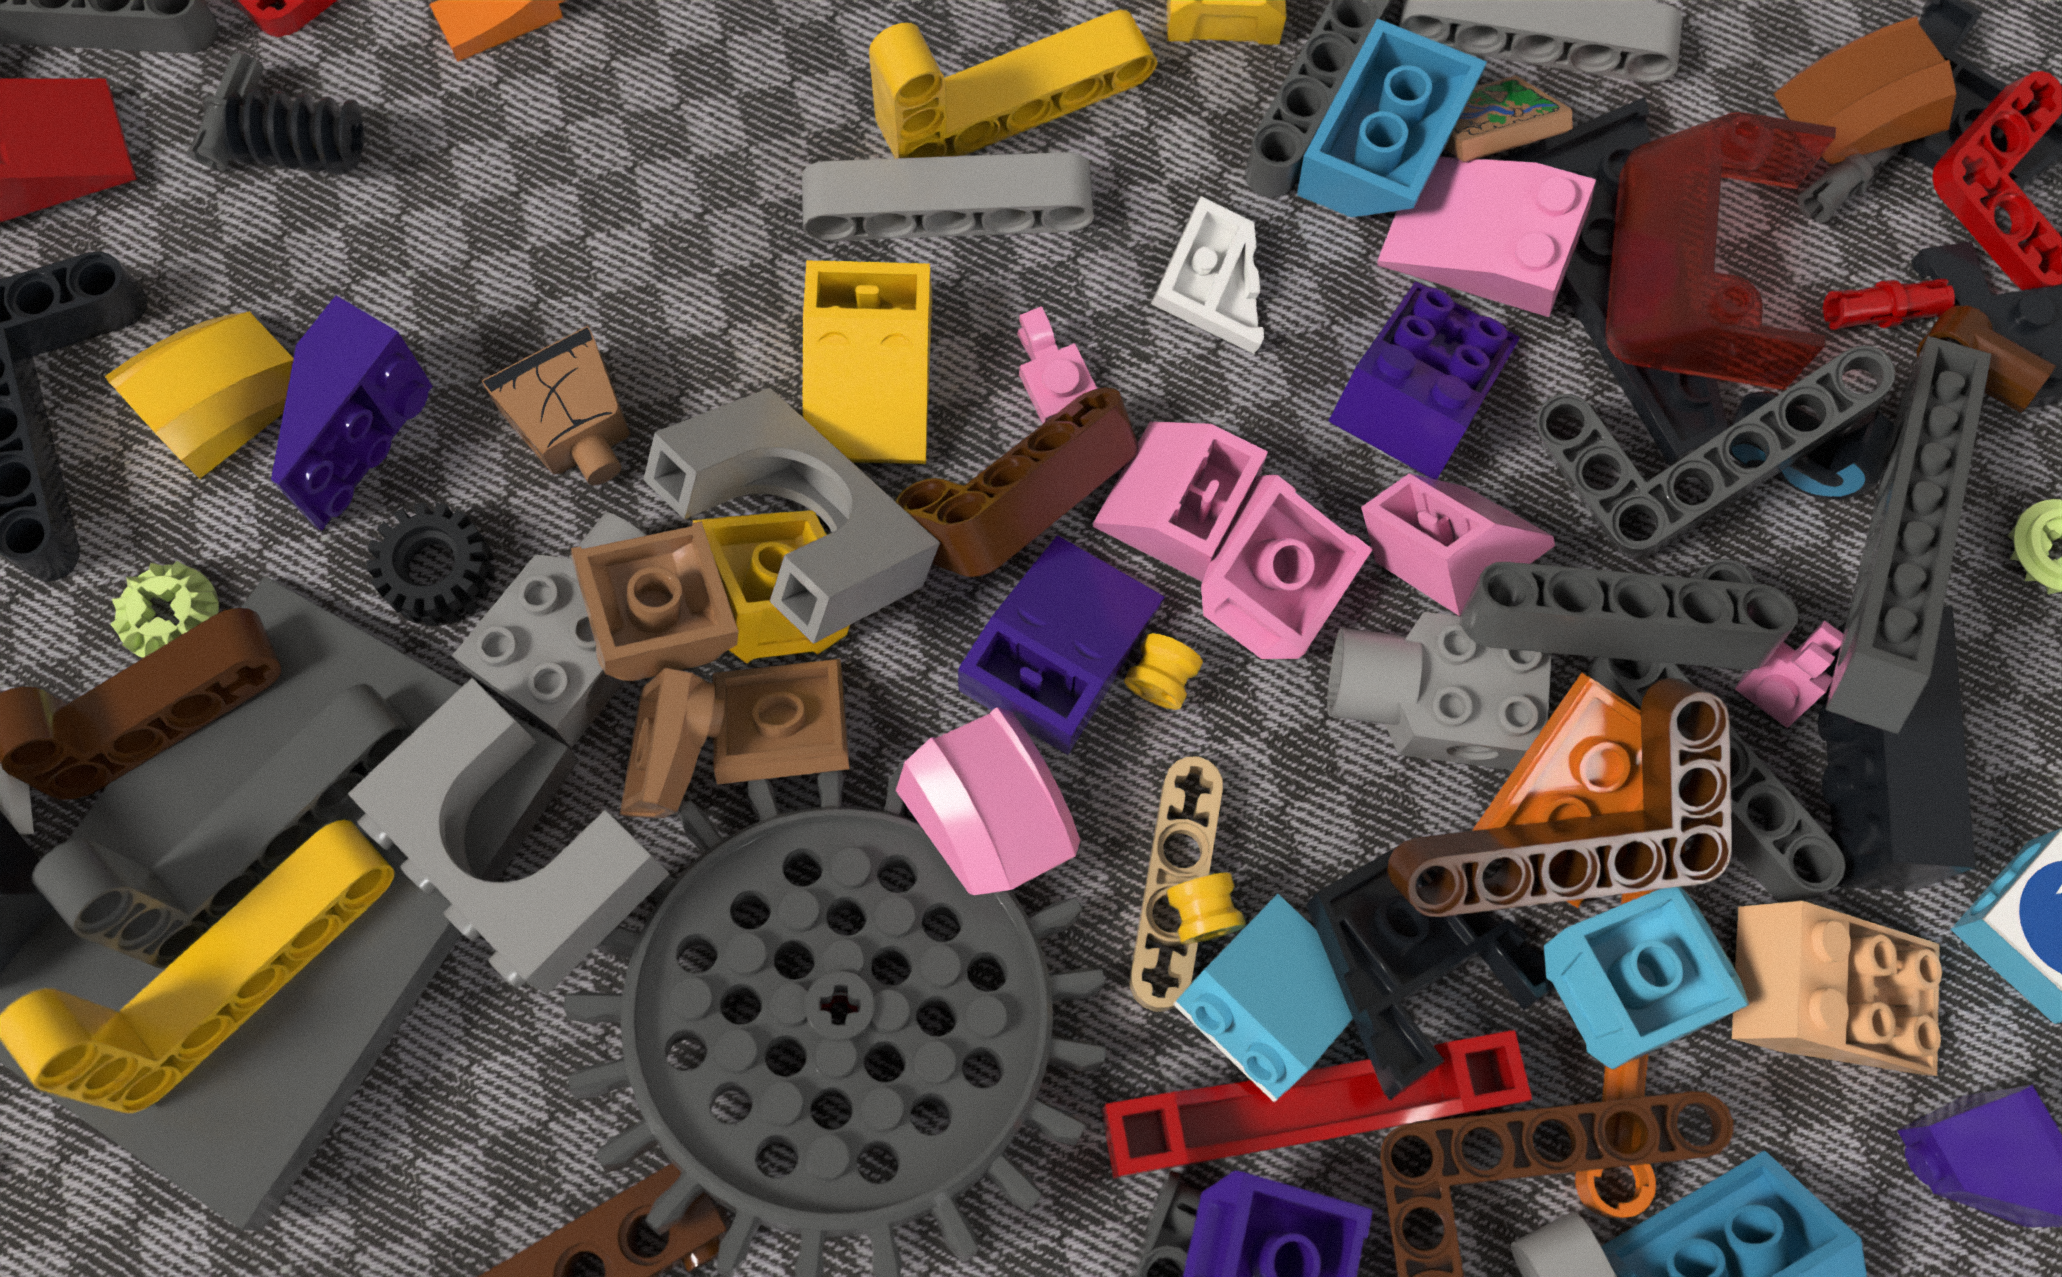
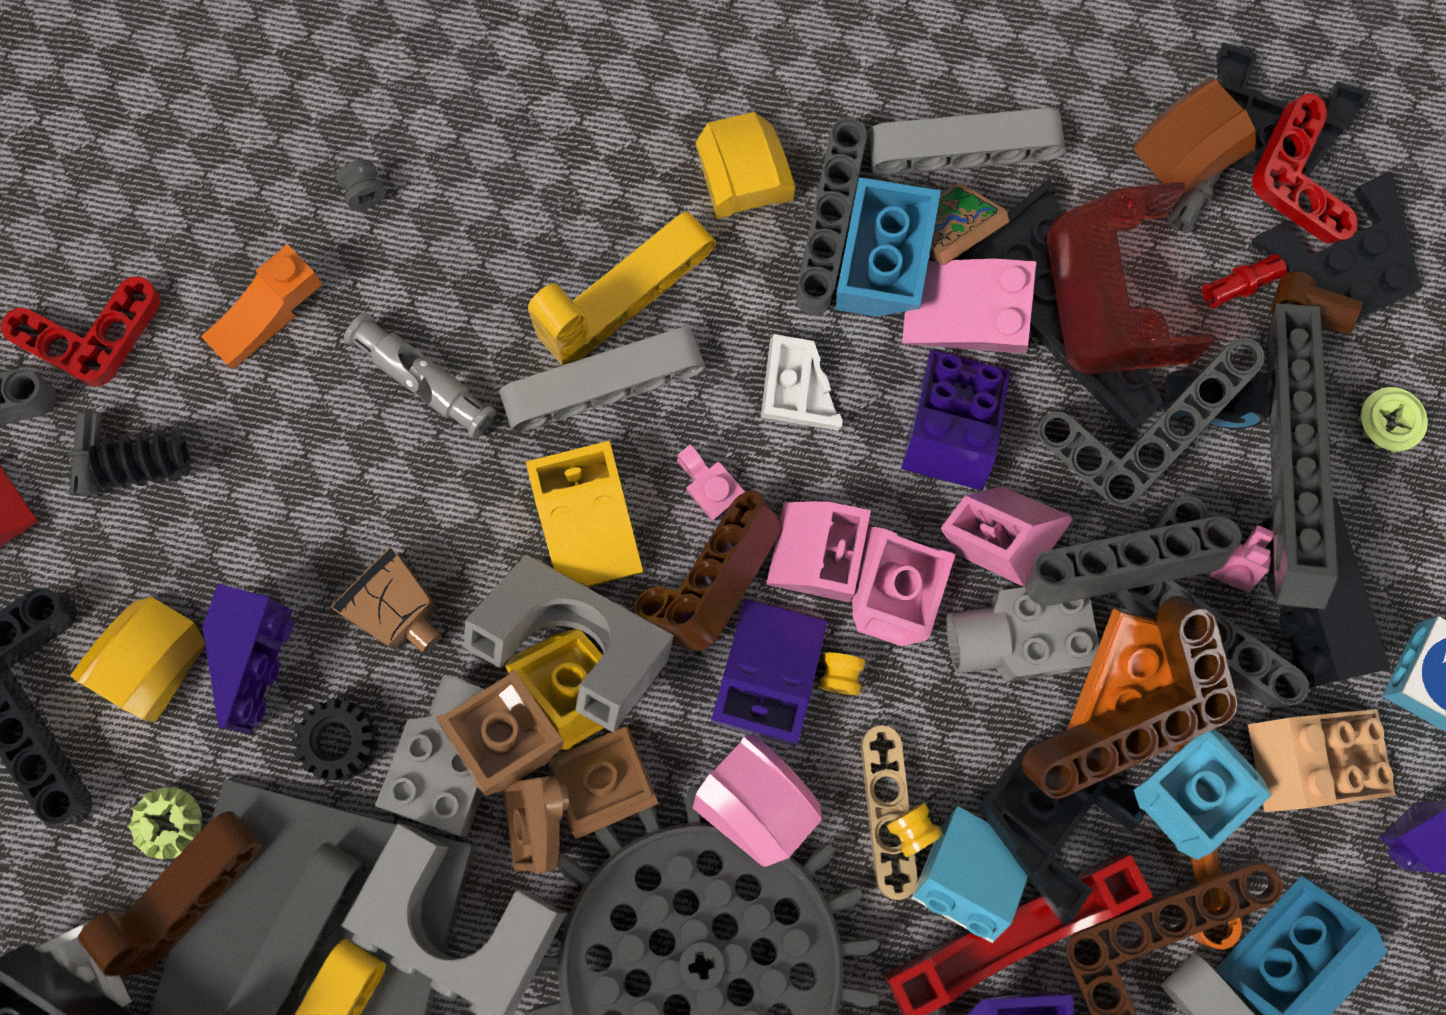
camera: 15 degrees left, 5 degrees up
(703, 127) = (424, 378): none -> light grey piece

